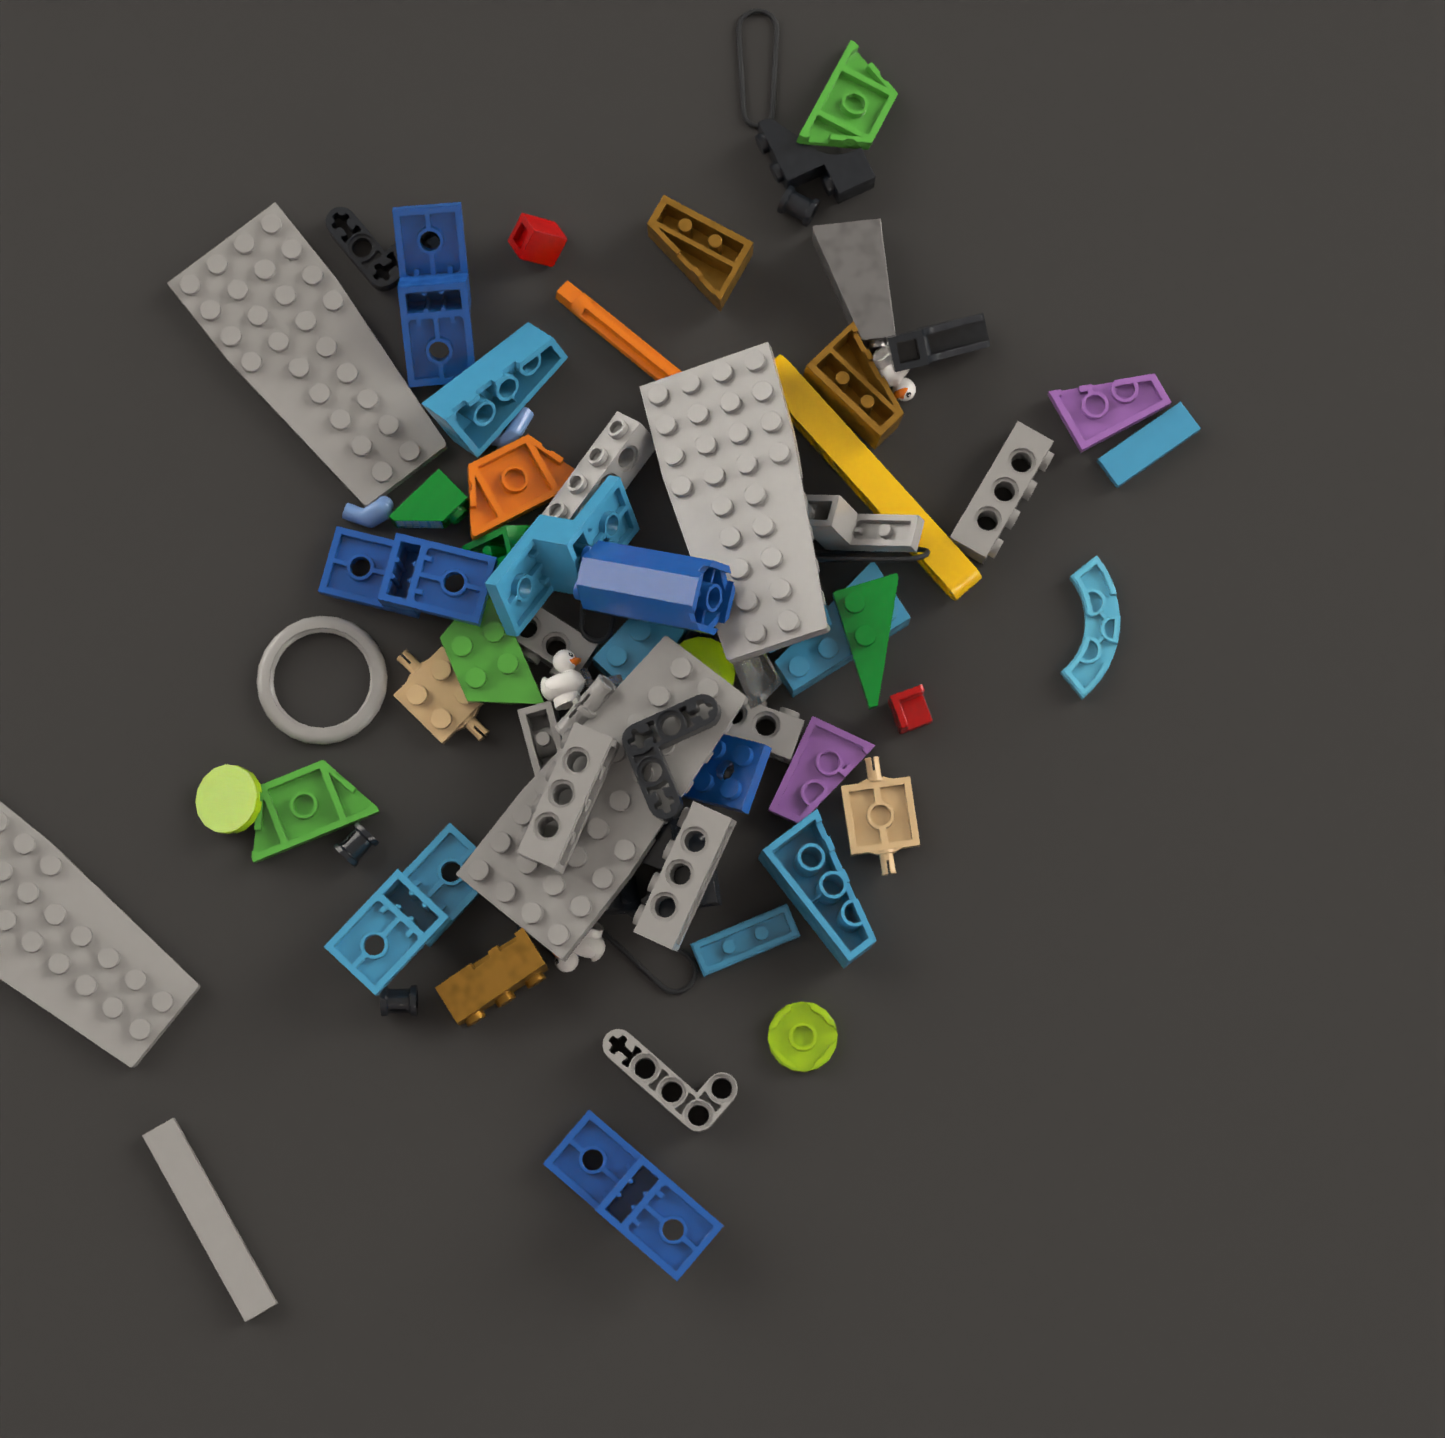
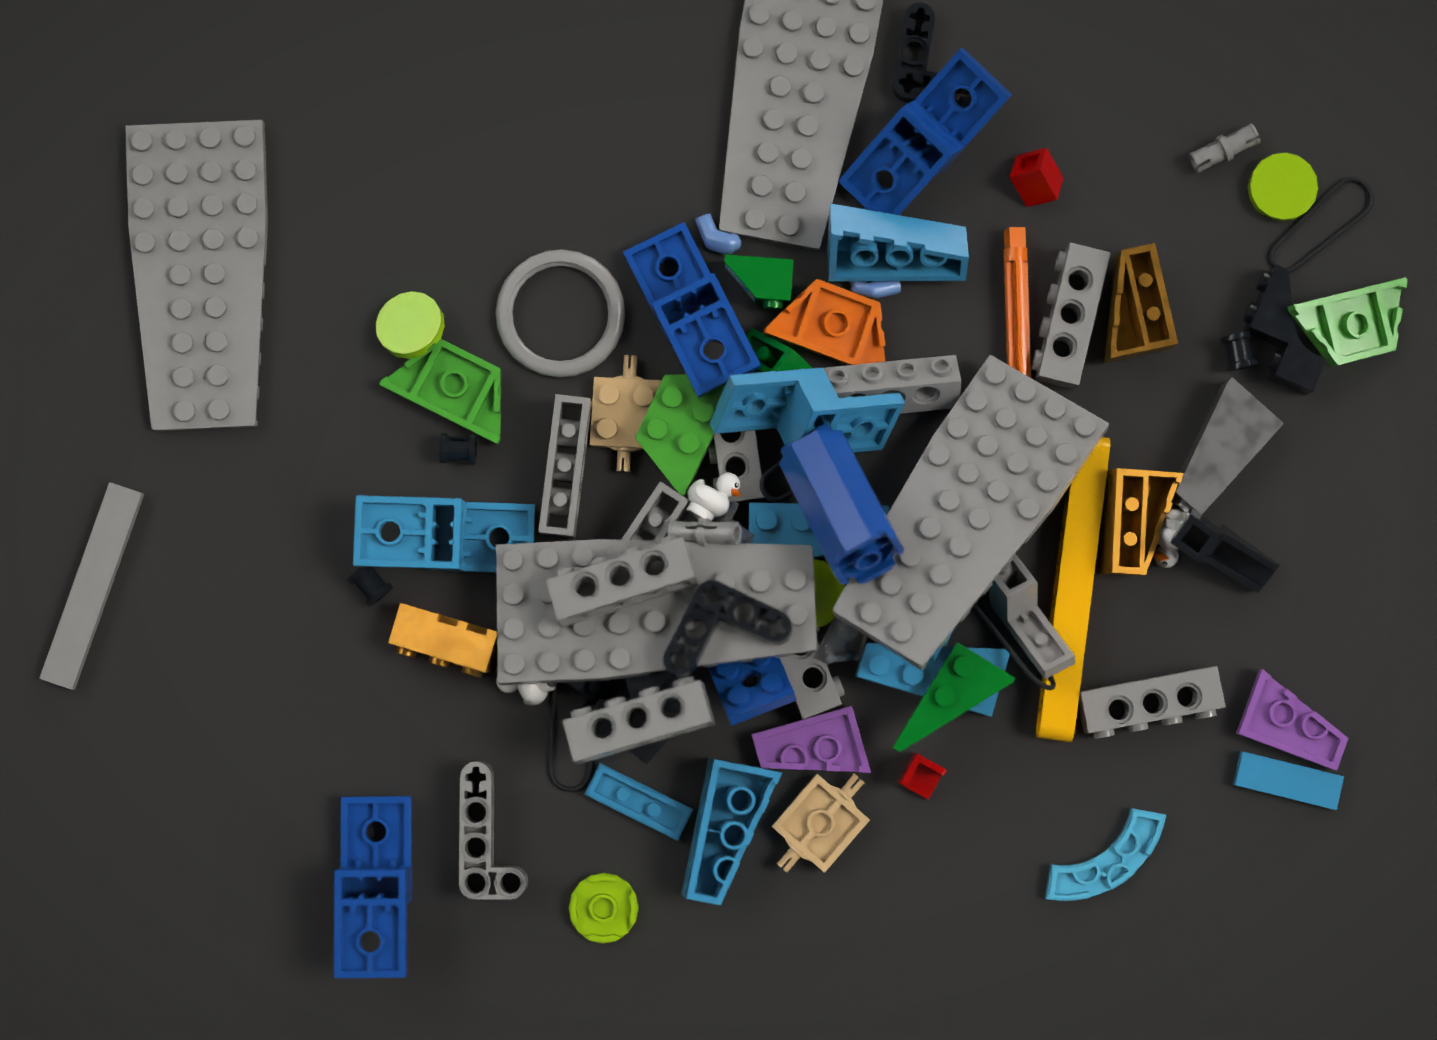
camera: 45 degrees right, 5 degrees up
(442, 773) = (565, 466): none -> light grey brick
(638, 86) = (1224, 148): none -> light grey pin
(640, 257) = (1091, 267): none -> light grey brick
(705, 70) = (1283, 187): none -> lime tile

